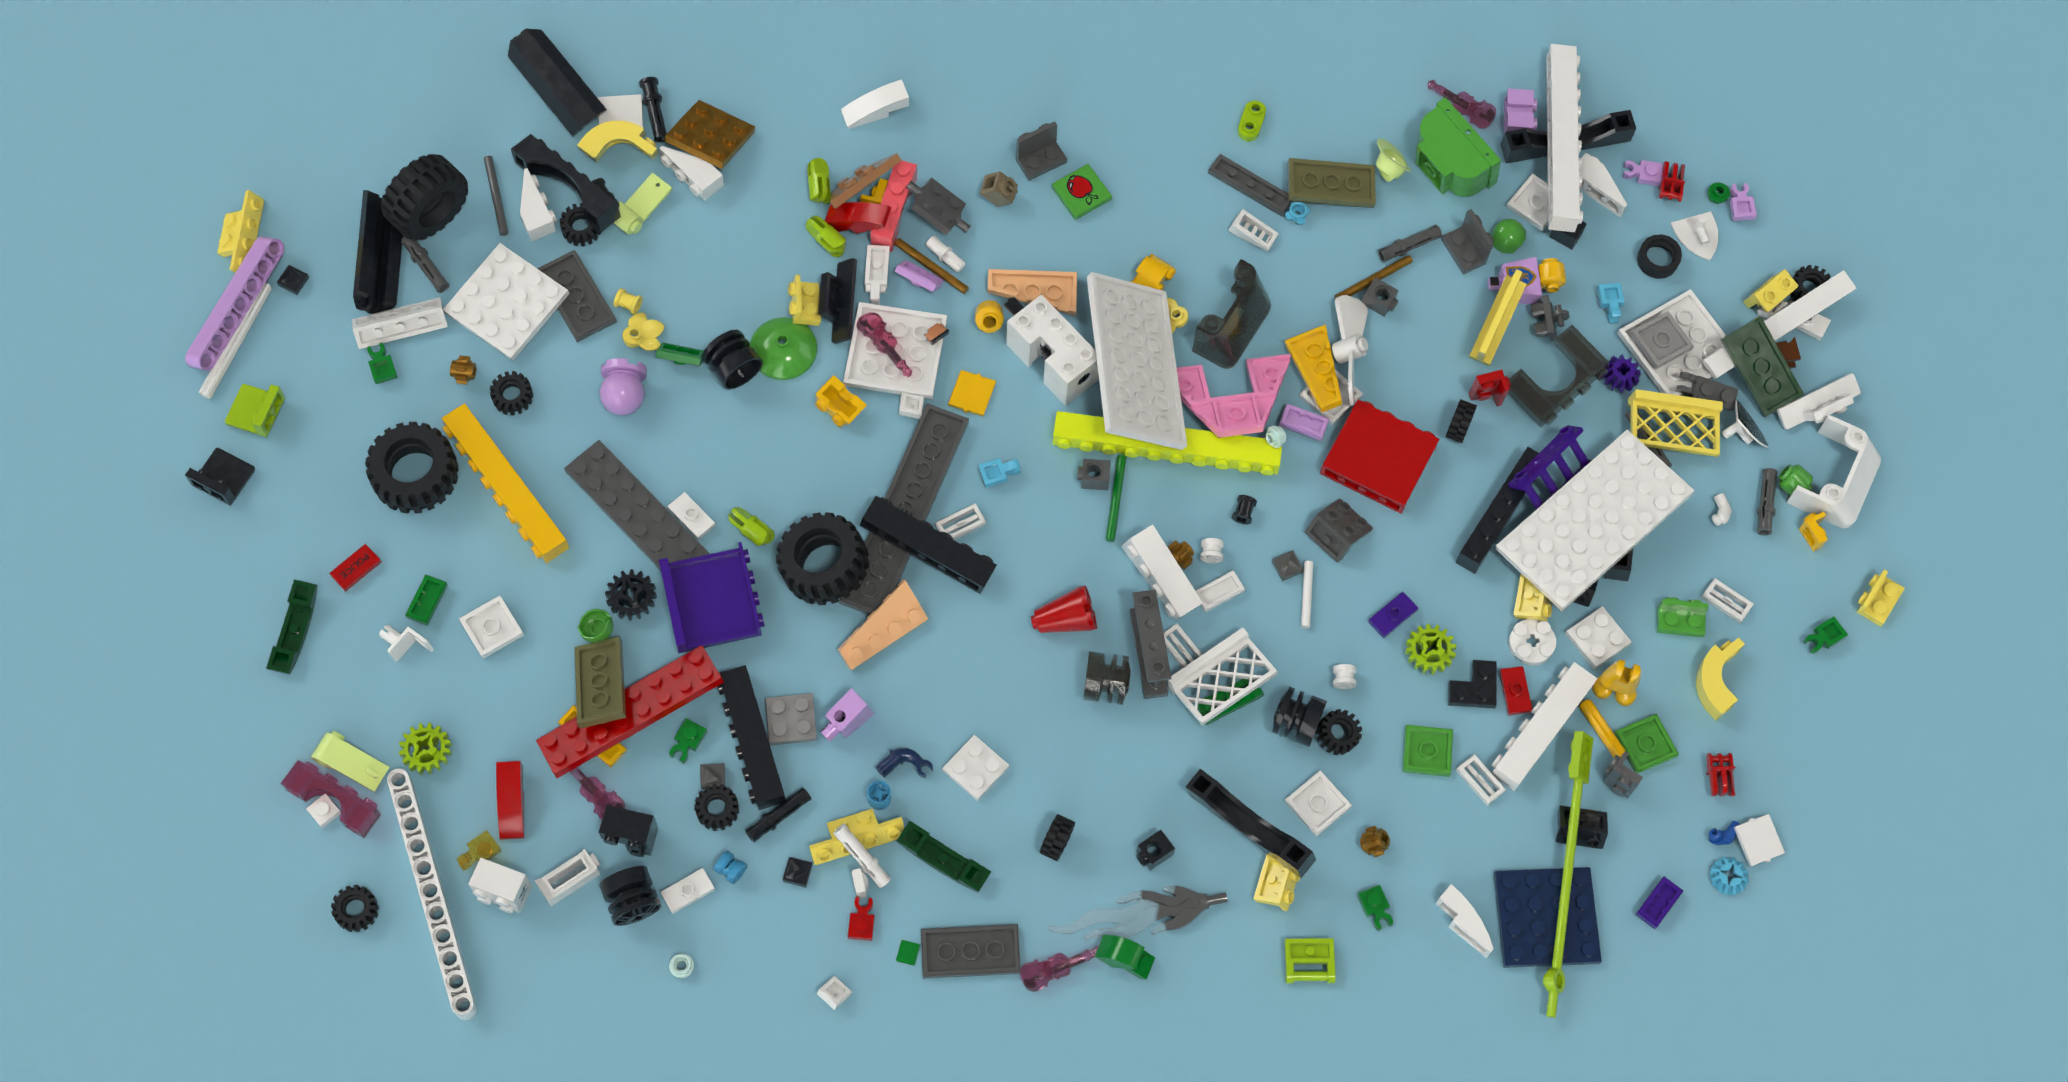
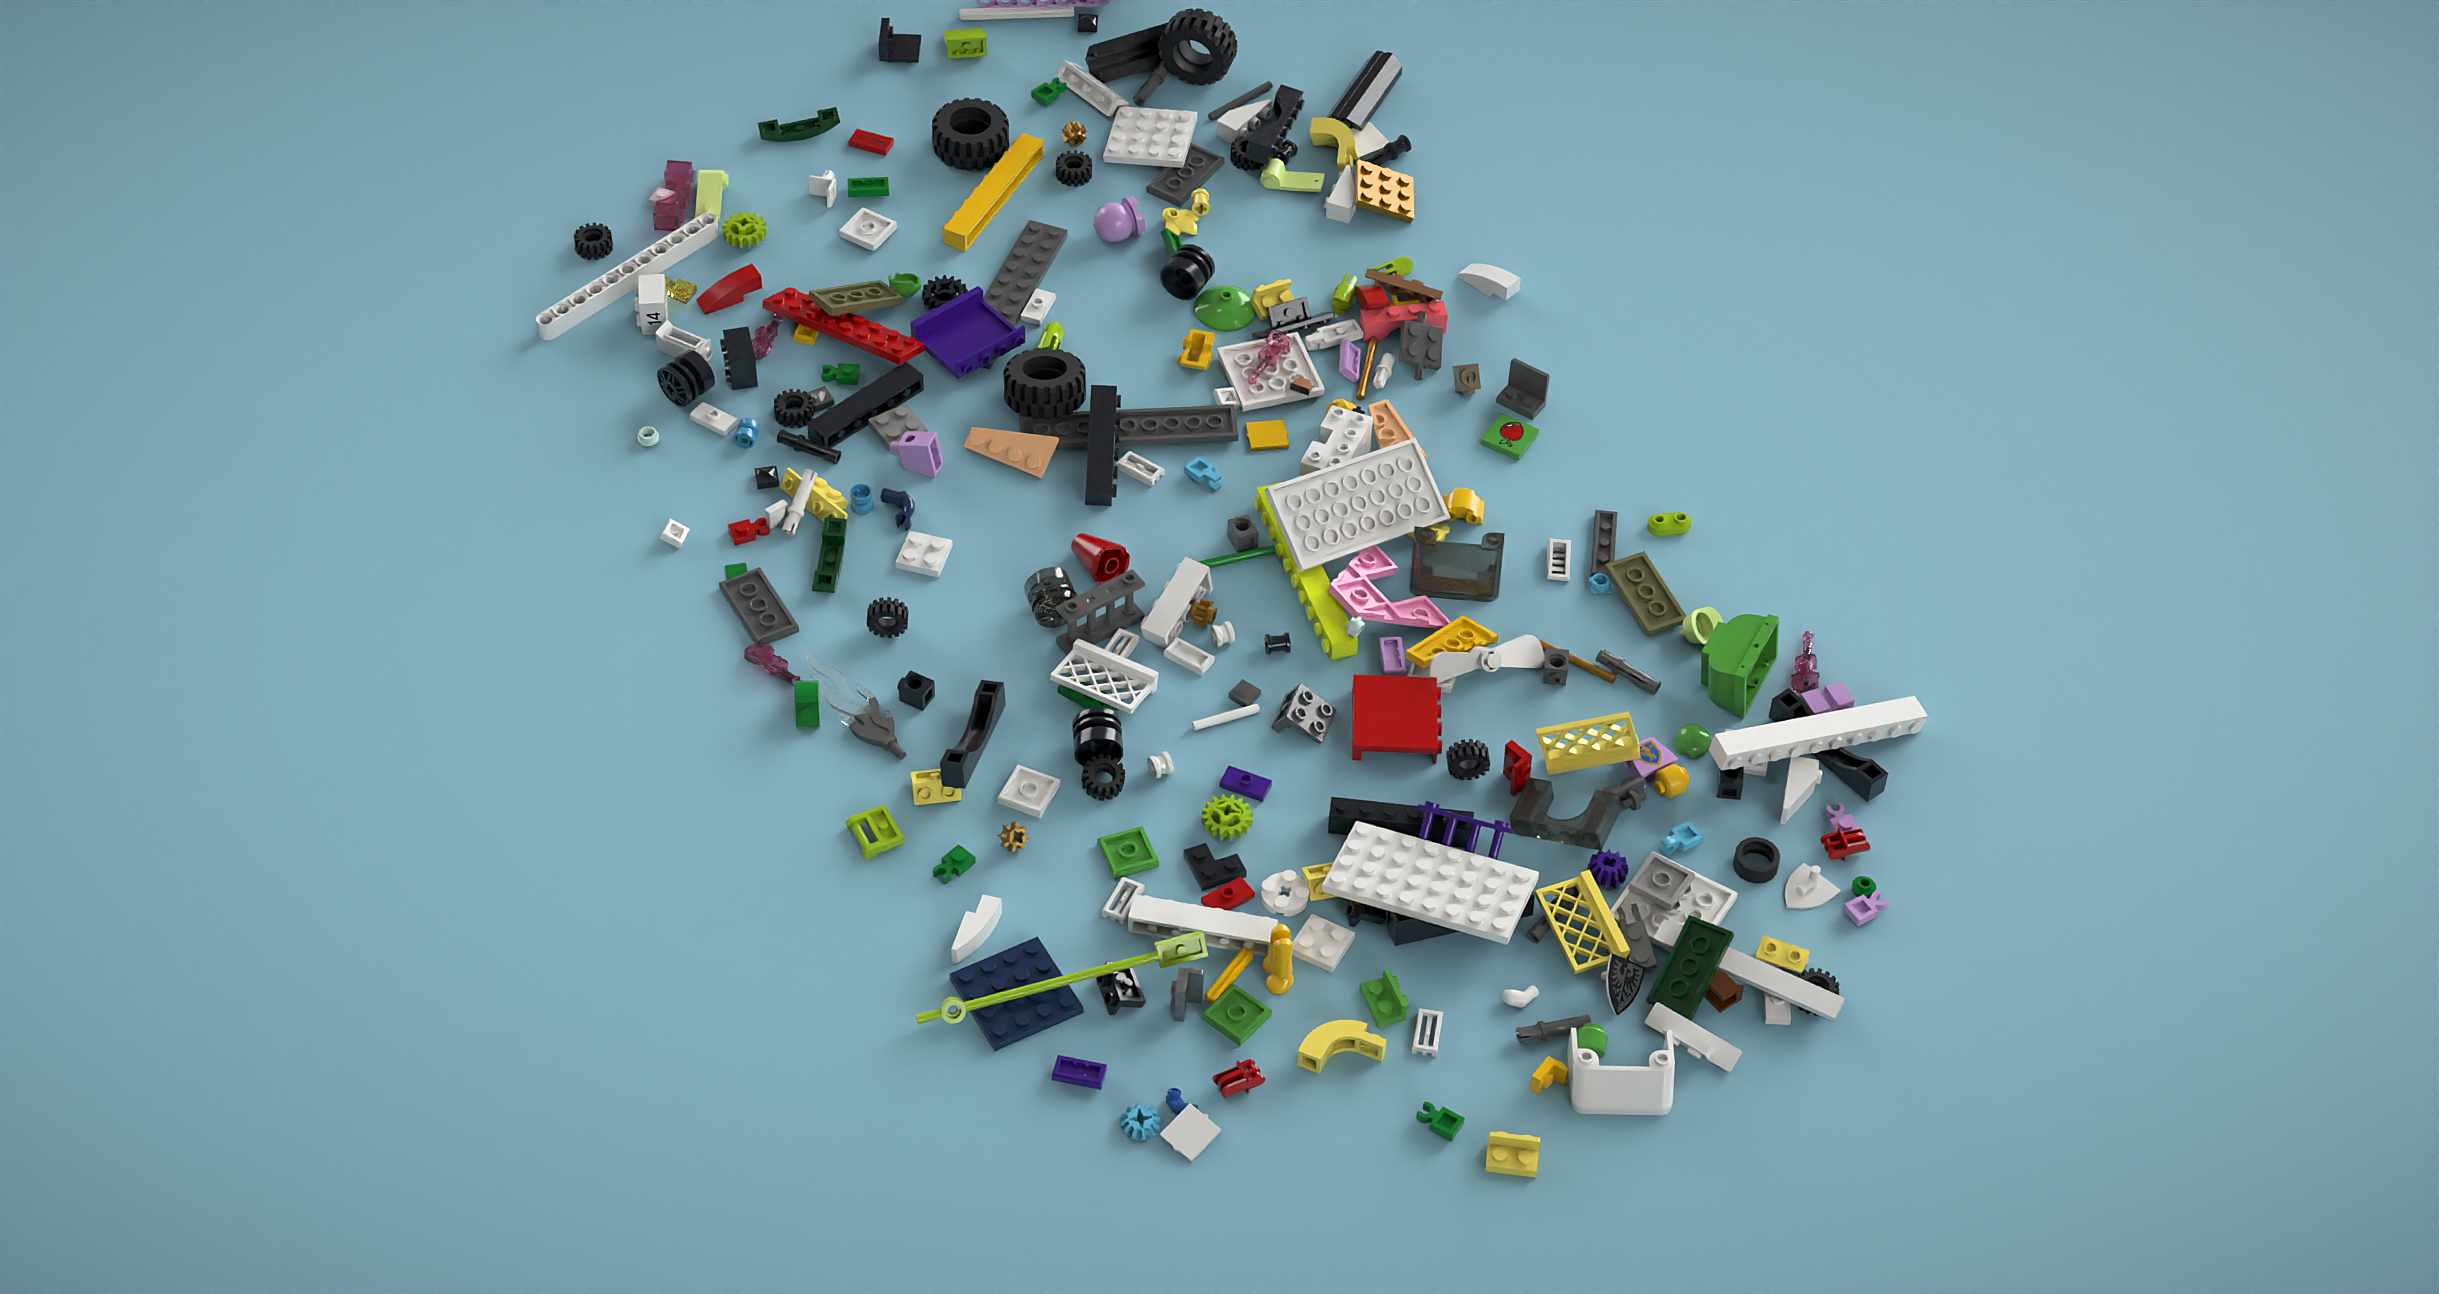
camera: 65 degrees right, 20 degrees down
(1469, 244) = (1657, 711): dark grey bracket -> none

